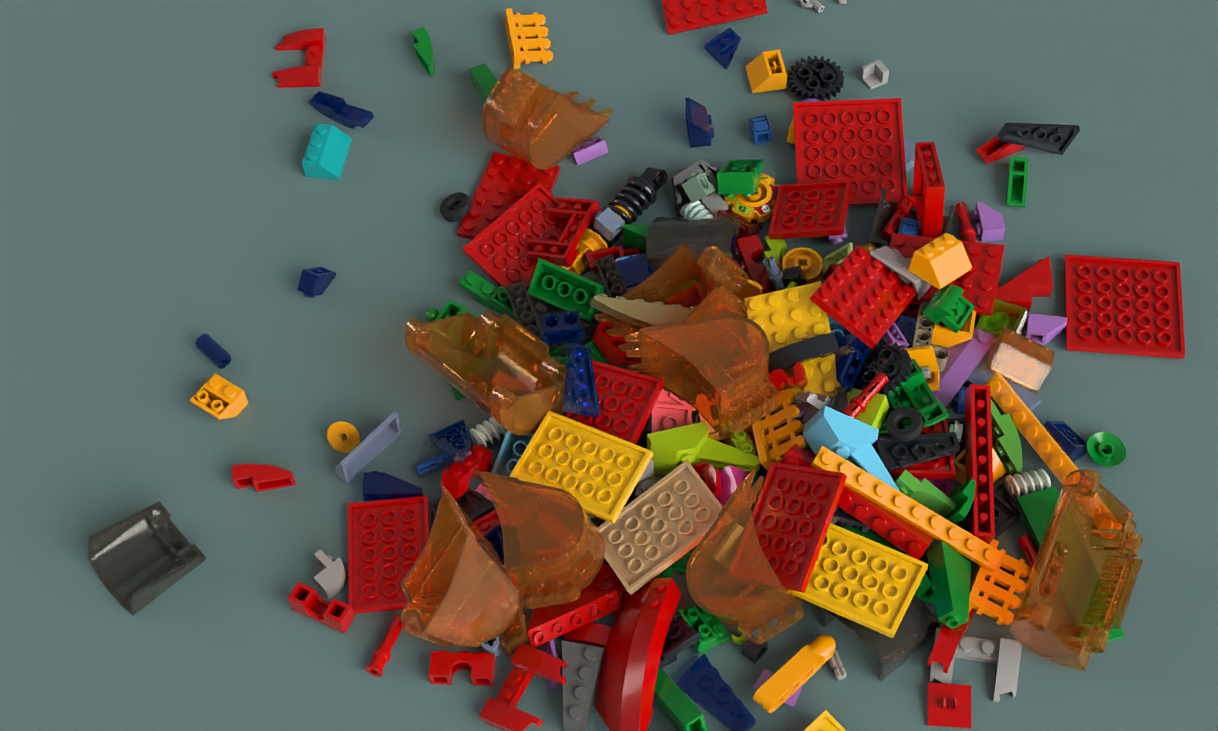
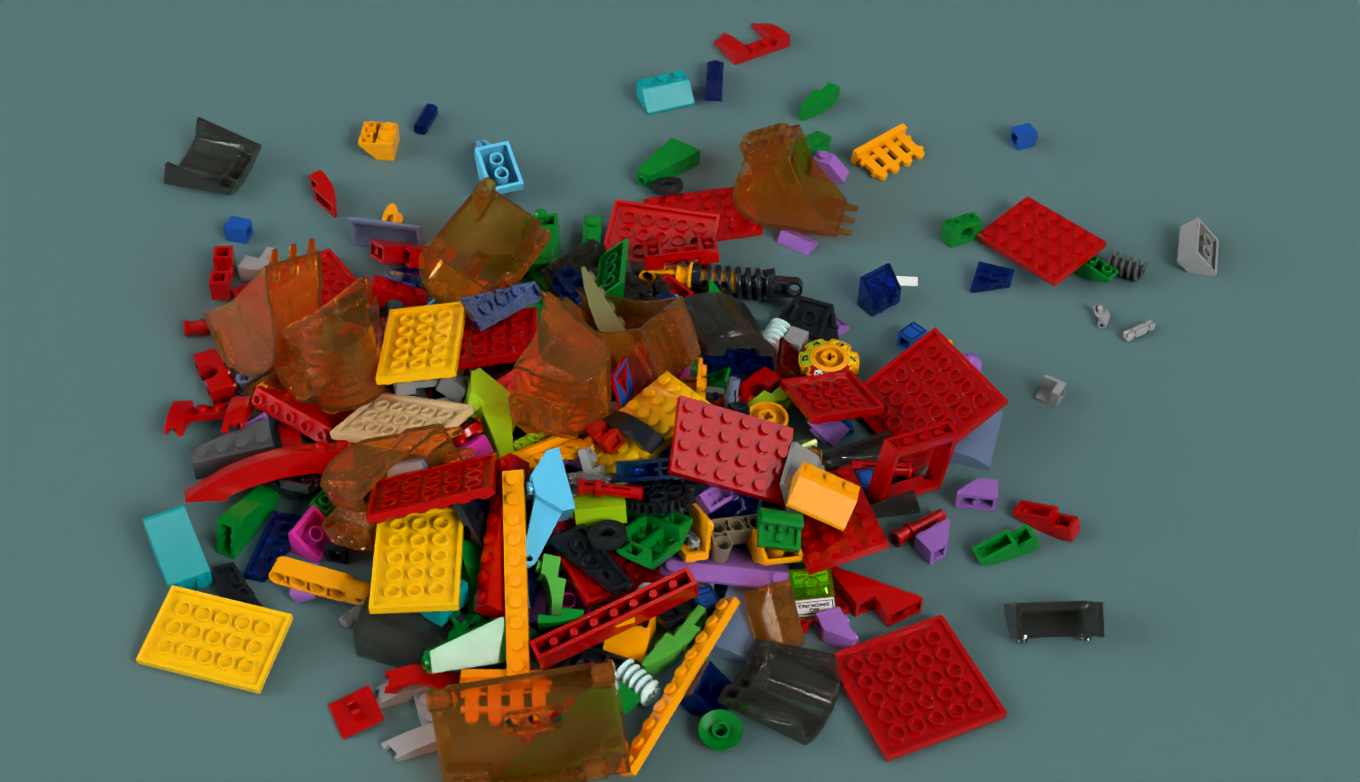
camera: 55 degrees right, 10 degrees down
(260, 572) = (238, 229): none -> blue brick
(315, 281) = (531, 141): clear blue slope -> none
(341, 320) = (498, 164): none -> medium azure slope
(385, 486) = (356, 259): clear blue slope -> none
(410, 436) = (396, 252): none -> red slope
(423, 193) = (668, 161): none -> green slope
(608, 223) = (702, 269): sand blue brick -> none
(658, 36) = (961, 229): none -> green brick
(679, 109) = (907, 281): none -> white sticker
(700, 185) = (798, 316): sand green brick -> none
(728, 660) = (307, 536): none -> dark pink slope
(740, 177) = (832, 336): green slope -> none
(767, 72) = (984, 316): light orange slope -> none
(815, 78) = (1017, 359): black gear -> none
(957, 171) = (978, 495): none -> medium lavender slope
(1045, 137) = (1070, 535): black wing -> none
(1088, 390) = (786, 689): none -> clear smoke windscreen
(1103, 186) = (1054, 619): none -> clear smoke windscreen

